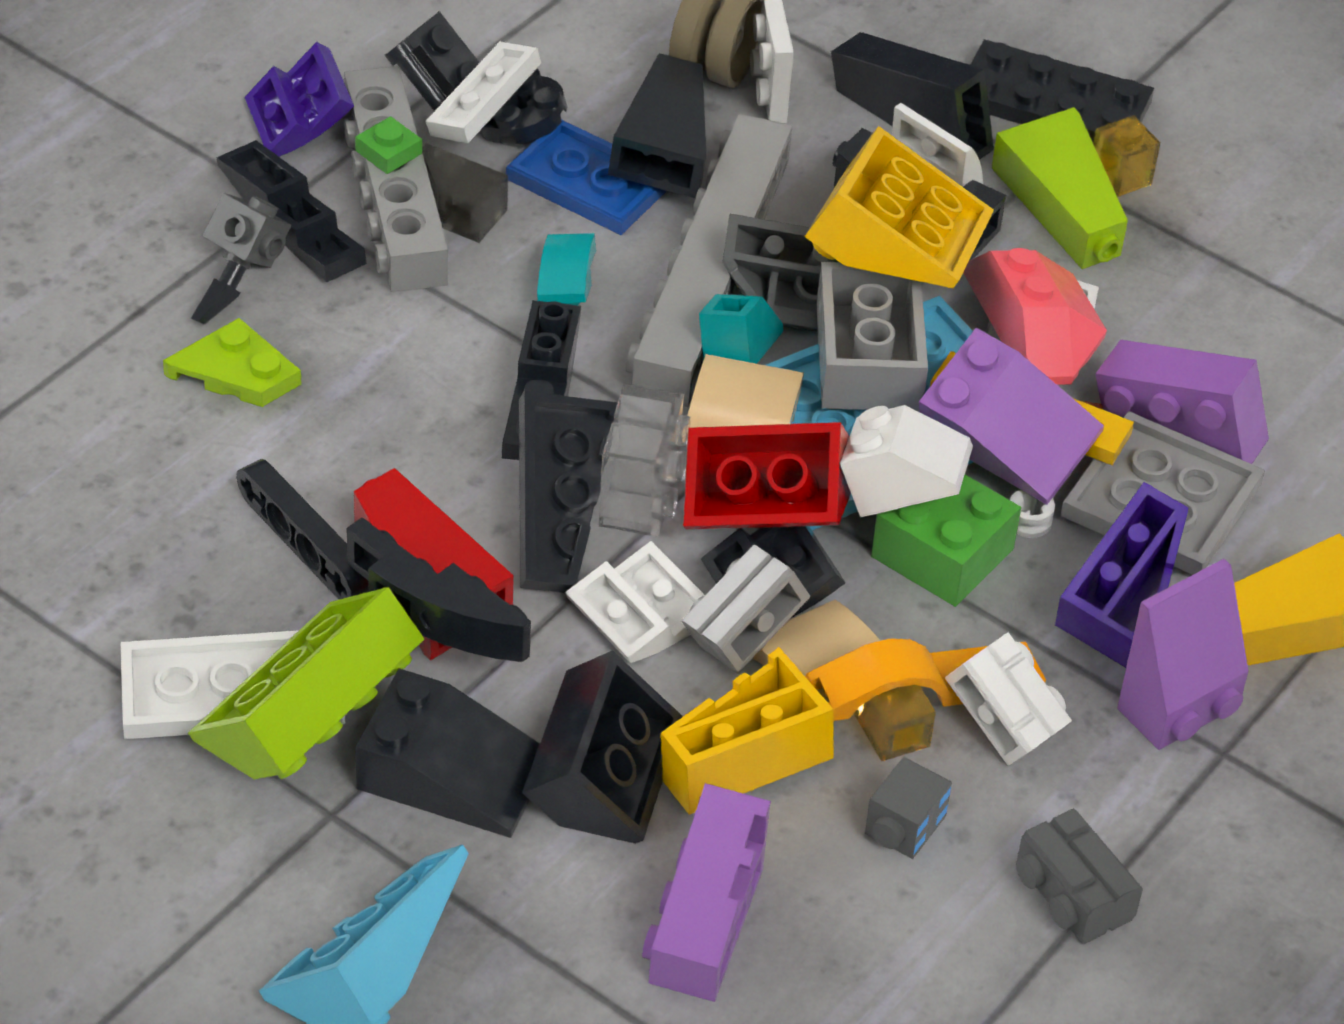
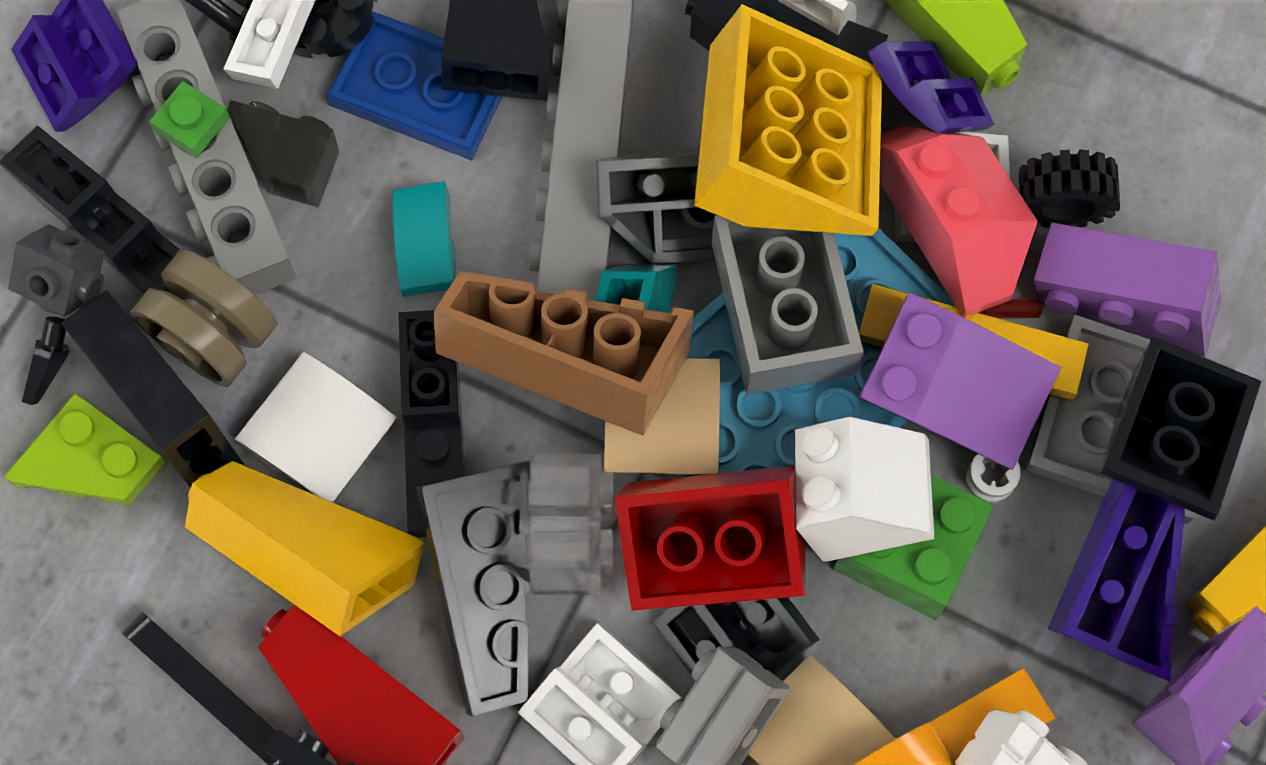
camera: 10 degrees left, 25 degrees up
(311, 327) = (150, 389): none -> black slope
(365, 273) = (204, 317): none -> dark tan wheel
(411, 437) = (302, 545): none -> yellow slope
(439, 377) = (315, 428): none -> white slope
(671, 323) = (566, 347): none -> medium nougat wedge
(1033, 230) = (926, 90): none -> dark purple slope
(1144, 302) = (1070, 188): none -> black tyre
(1200, 463) = (1180, 428): none -> black slope

